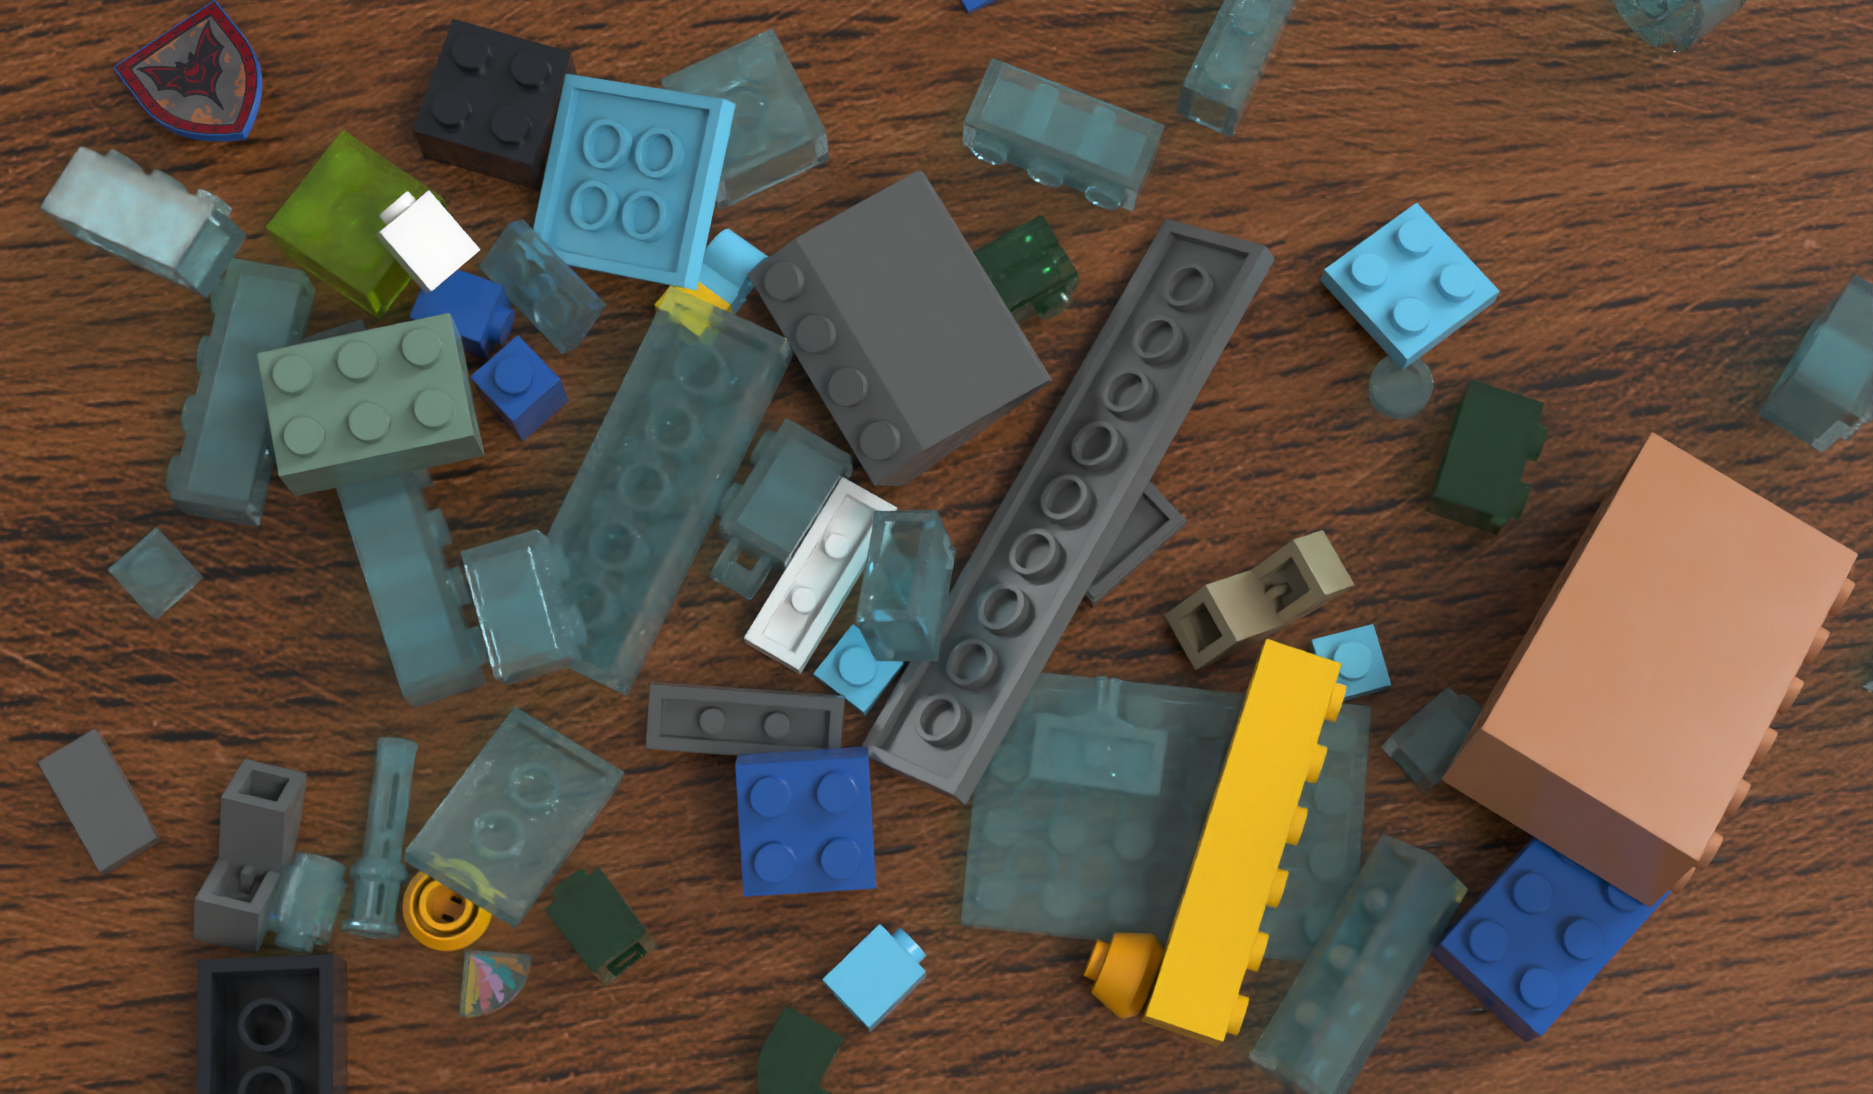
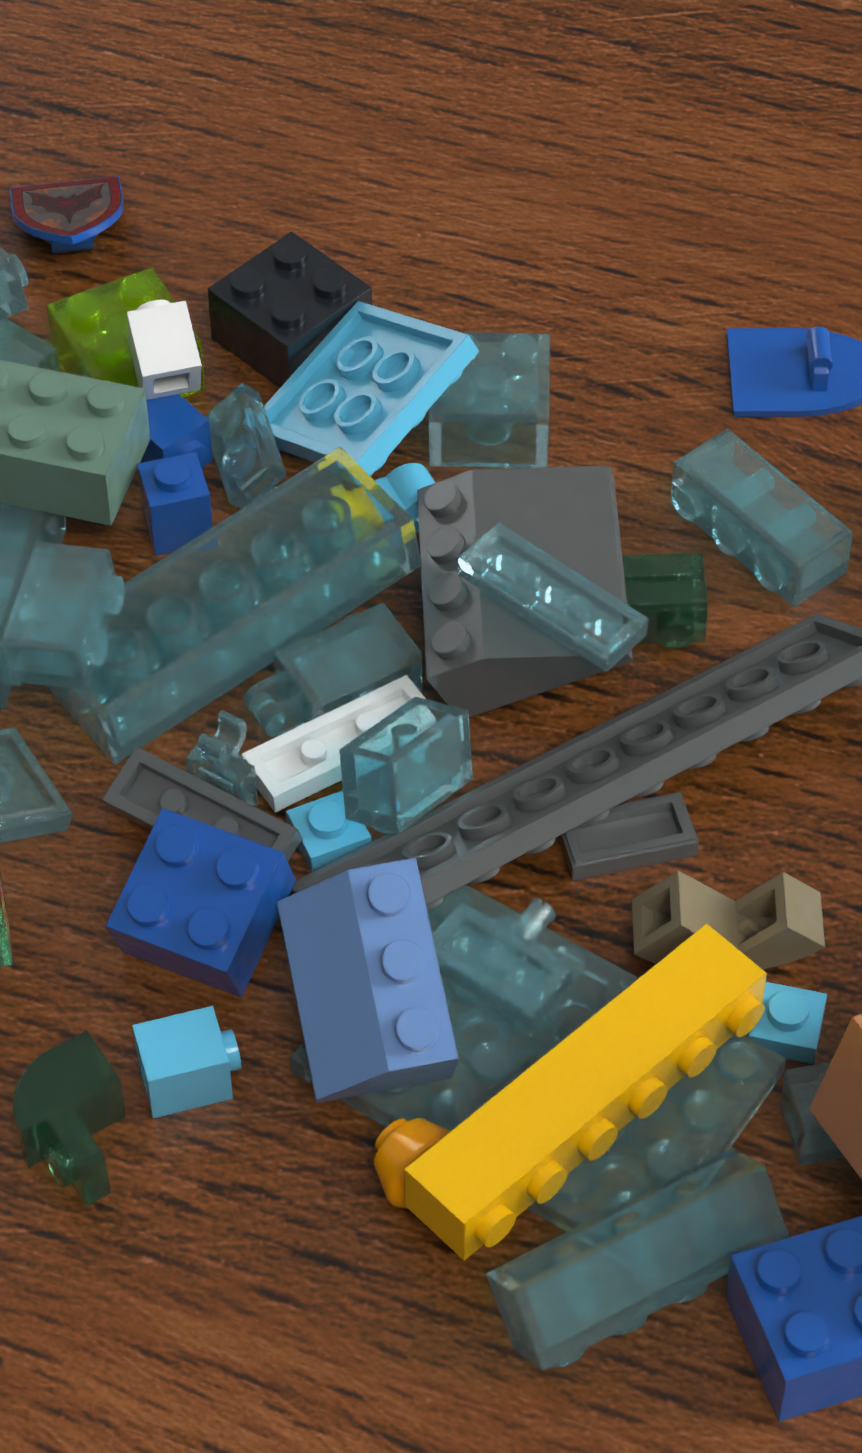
camera: 30 degrees right, 25 degrees down
(740, 664) = (219, 760): none -> clear light blue plate
(957, 361) = (552, 596): none -> clear light blue plate
(1013, 847) = (368, 982): none -> medium blue slope

